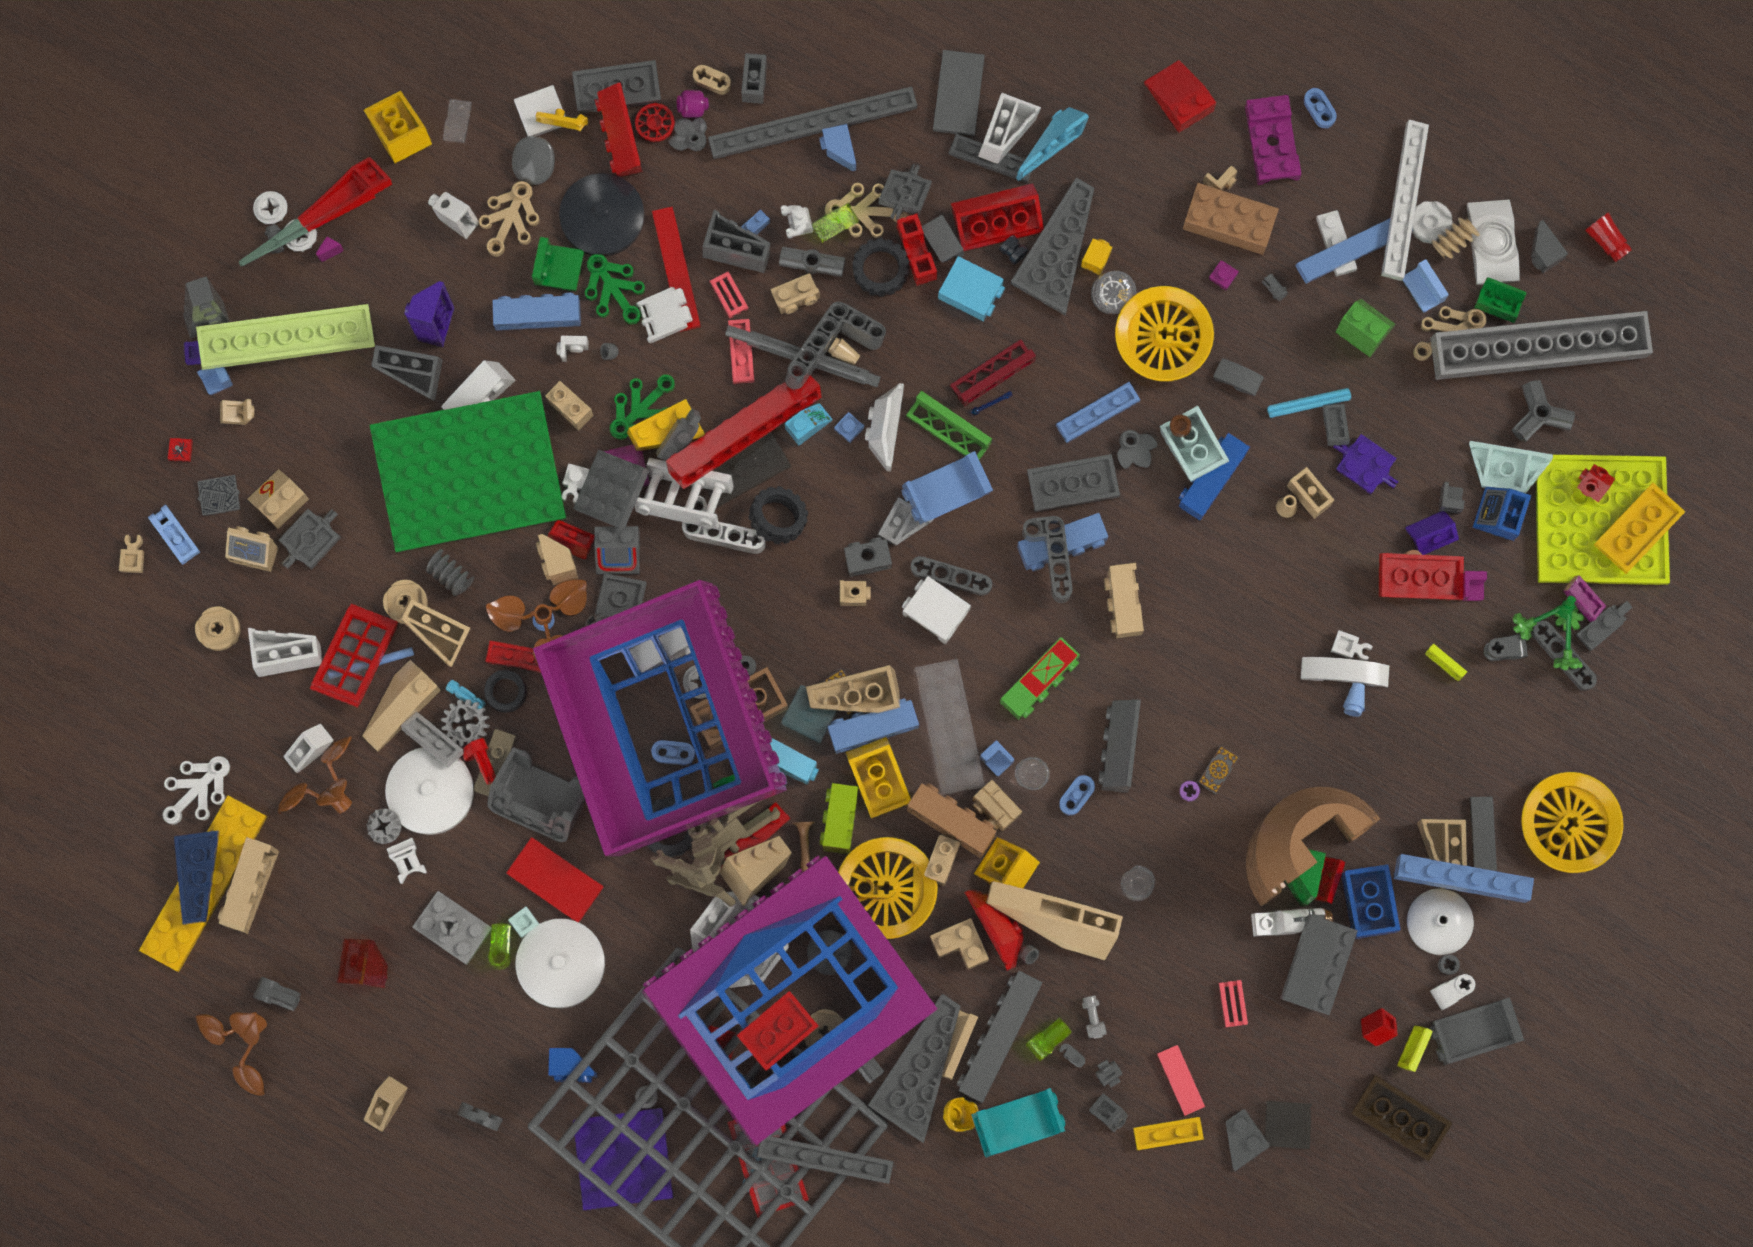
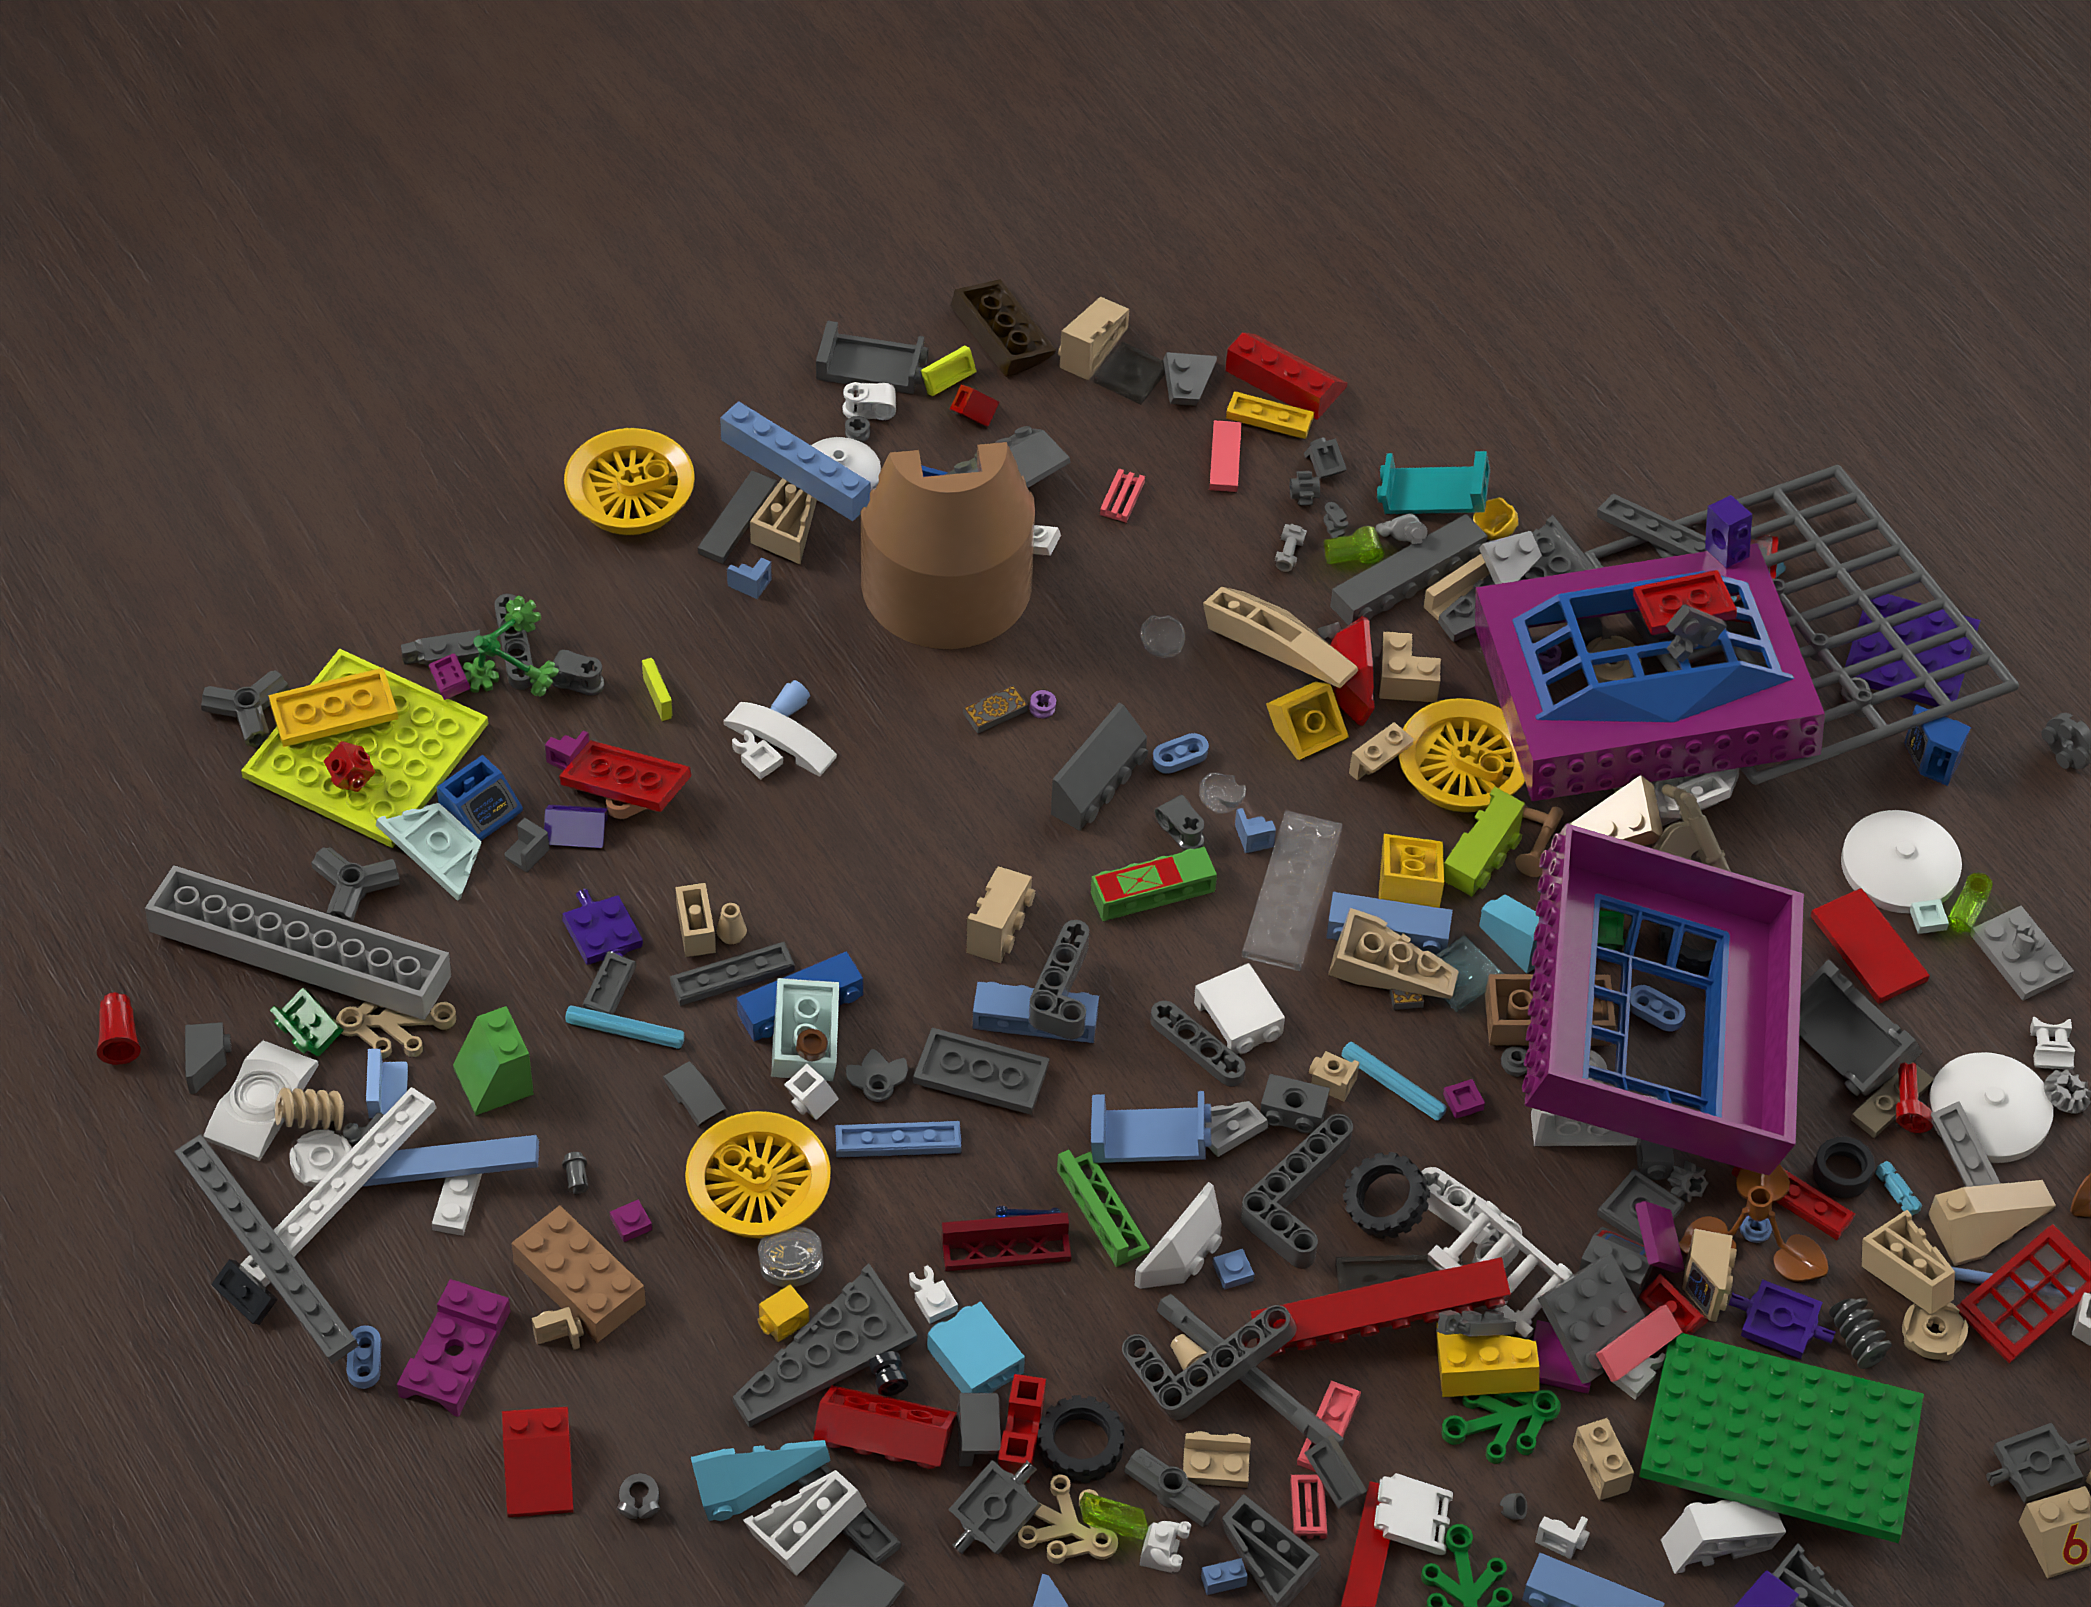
camera: 155 degrees left, 25 degrees down
(454, 716) = (1927, 1157): light grey gear -> none
(501, 560) = (1781, 1319): none -> dark purple plate
(579, 488) = (1638, 1343): none -> coral tile
(596, 567) = (1659, 1237): none -> magenta tile
(721, 314) = (1335, 1471): none -> dark grey tile
(760, 987) = (1691, 629): none -> dark grey hinge
(765, 619) = (1464, 1098): none -> magenta plate
(775, 1125) = (1728, 531): none -> dark purple brick
(807, 423) = (1287, 1286): medium azure slope -> none
(815, 611) = (1394, 1081): none -> medium azure axle
(842, 498) = (1291, 1185): none -> dark grey beam
(932, 1076) = (1510, 556): none -> light grey wing
(951, 820) = (1349, 781): medium nougat brick -> none
(996, 806) = (1284, 781): tan brick -> none
(1015, 316) = (932, 1298): none -> white plate
(1022, 1072) = (1404, 528): none -> light grey piece
(1049, 739) = (1181, 822): none -> dark grey piece
(1114, 95) = (650, 1501): none -> flat silver piece
(1165, 406) = (810, 1092): none -> white brick
(1177, 1183) = (1282, 374): none -> red slope
(1267, 476) = (732, 973): none -> dark grey tile
(1331, 1137) = (1092, 337): none -> tan wedge
(1414, 110) = (244, 1292): none -> black plate
(1415, 250) = (355, 1134): none -> dark grey arm
(1419, 134) = (266, 1249): none -> dark grey plate
(1442, 790) = (748, 579): none -> medium blue panel
(1695, 521) = (246, 705): none -> dark grey piece

